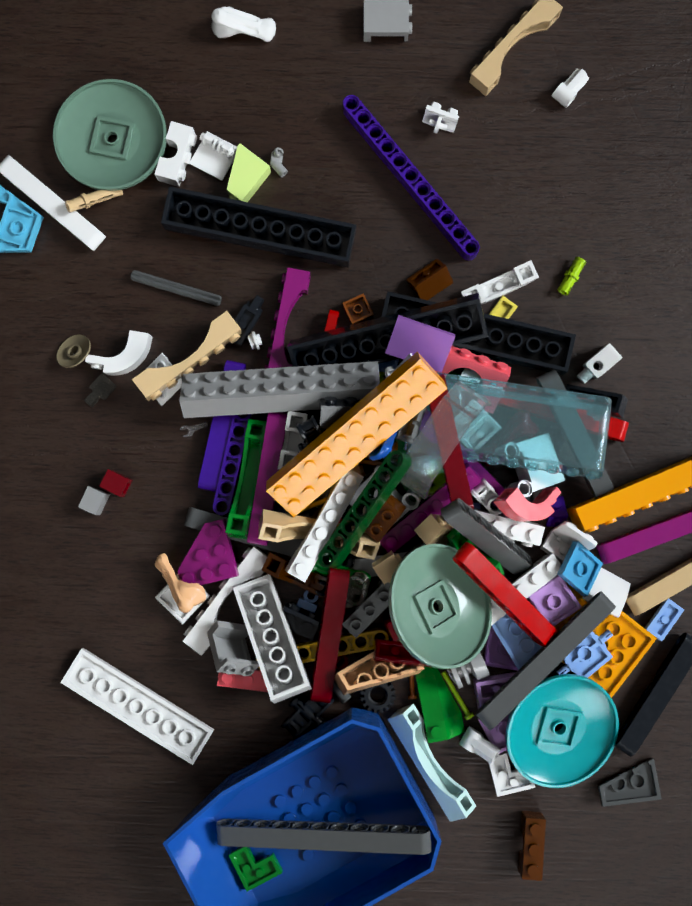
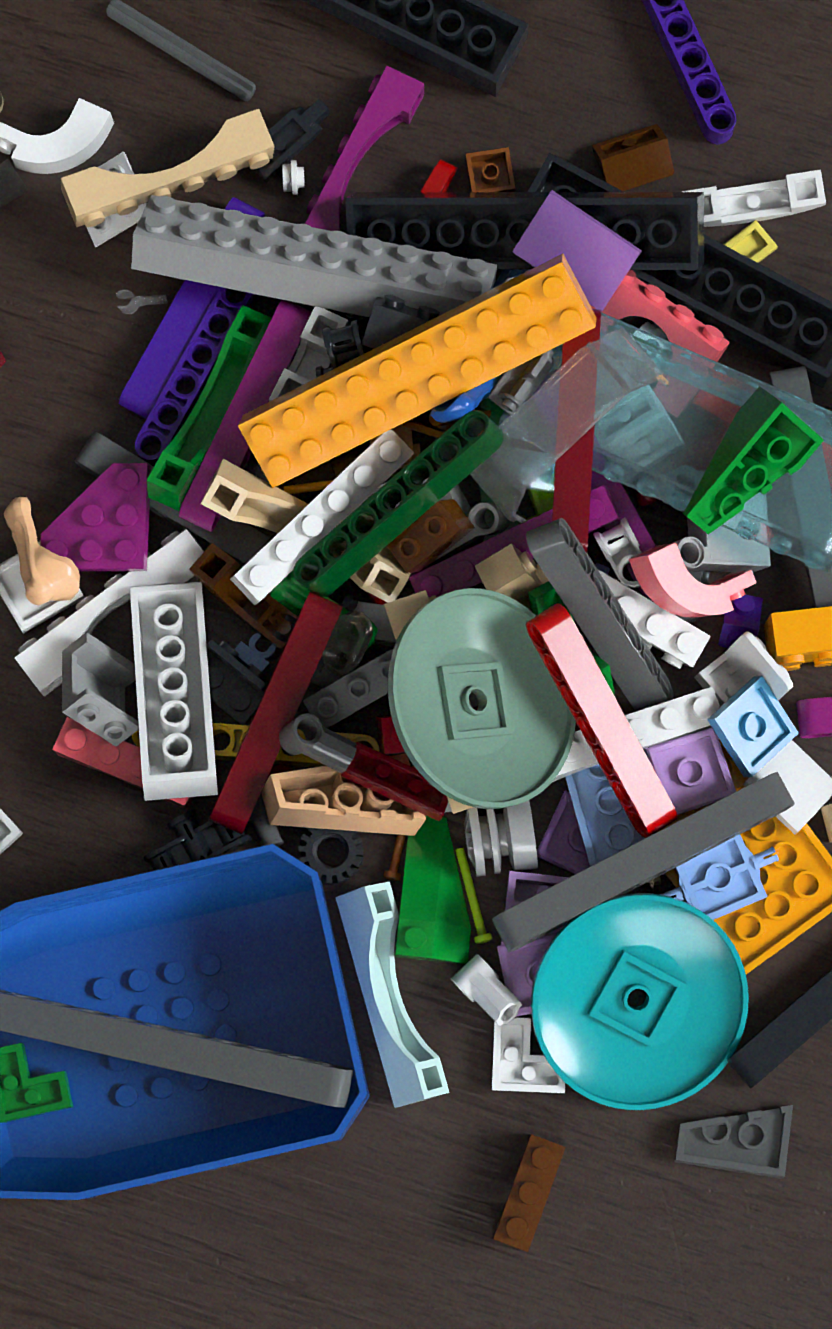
camera: 15 degrees right, 5 degrees down
(358, 648) = (319, 742): none -> dark grey piece
(547, 427) = (754, 453): none -> green wedge

